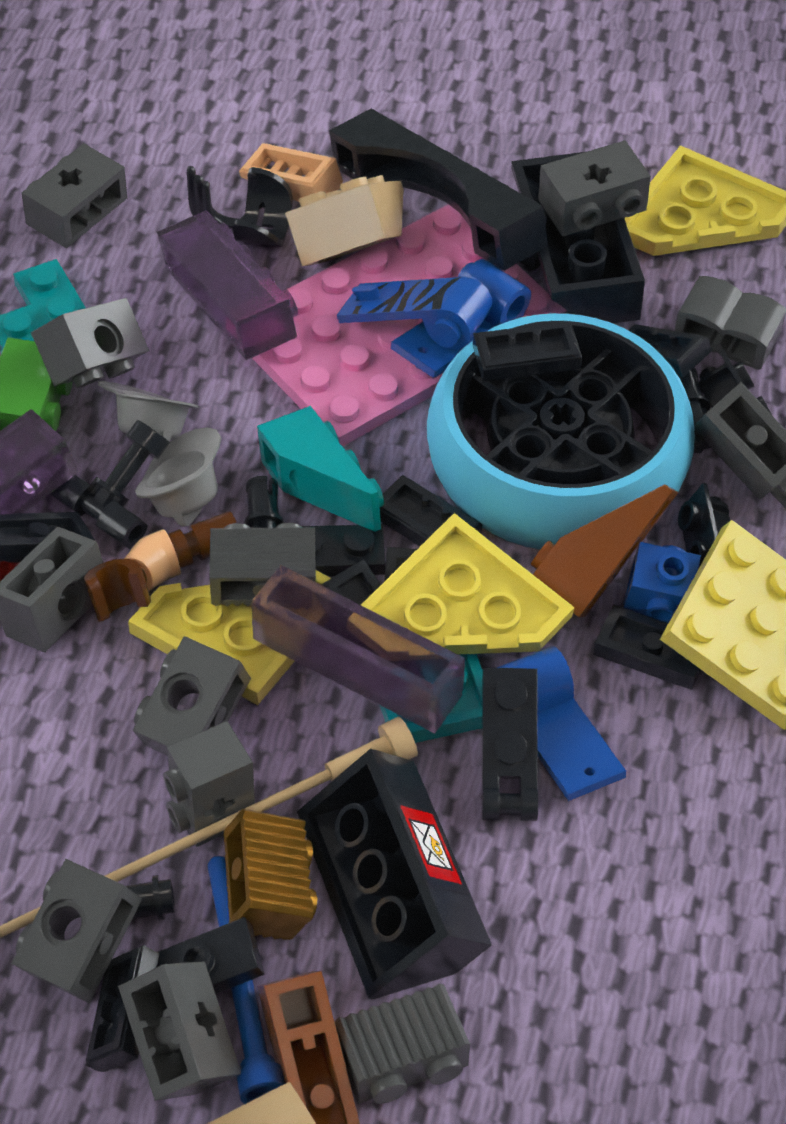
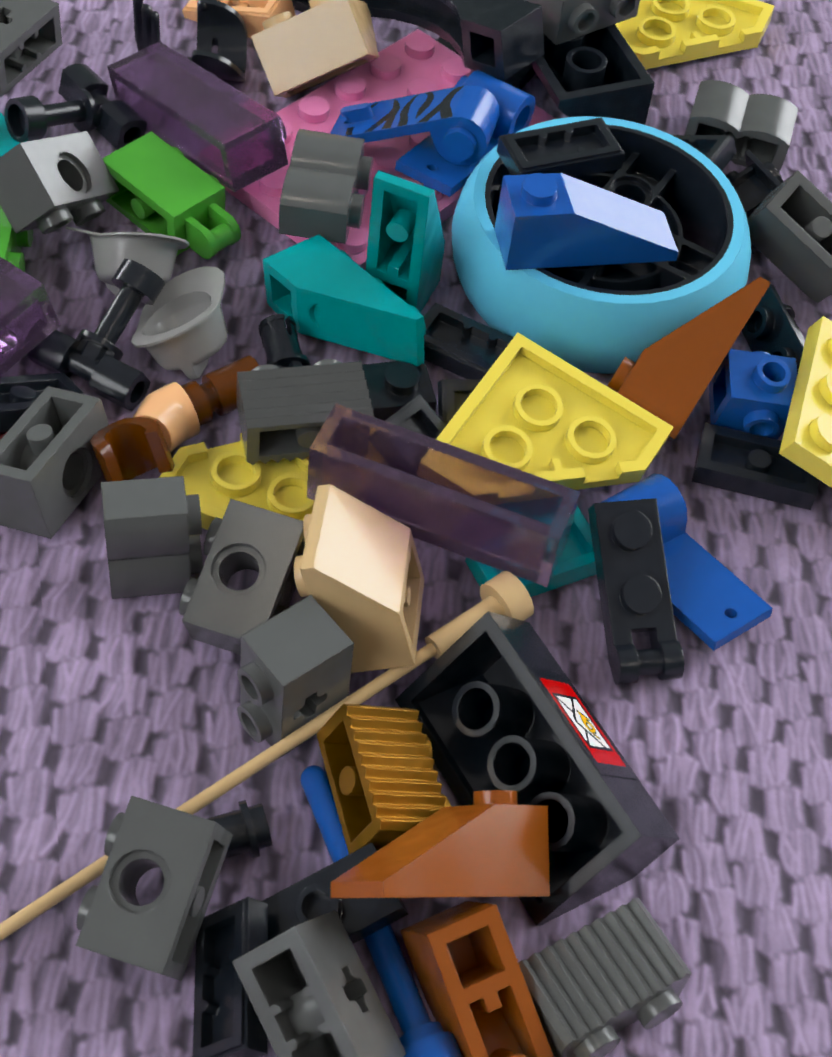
camera: 15 degrees left, 0 degrees up
(118, 659) = (151, 536): none -> dark grey brick
(136, 268) = (85, 108): none -> black bar
(193, 358) = (171, 195): none -> bright green brick
(279, 712) = (364, 577): none -> tan slope
(312, 933) = (460, 852): none -> dark orange slope
(323, 361) = (324, 186): none -> dark grey brick
(378, 427) = (405, 238): none -> teal slope
(525, 422) = (572, 223): none -> blue slope

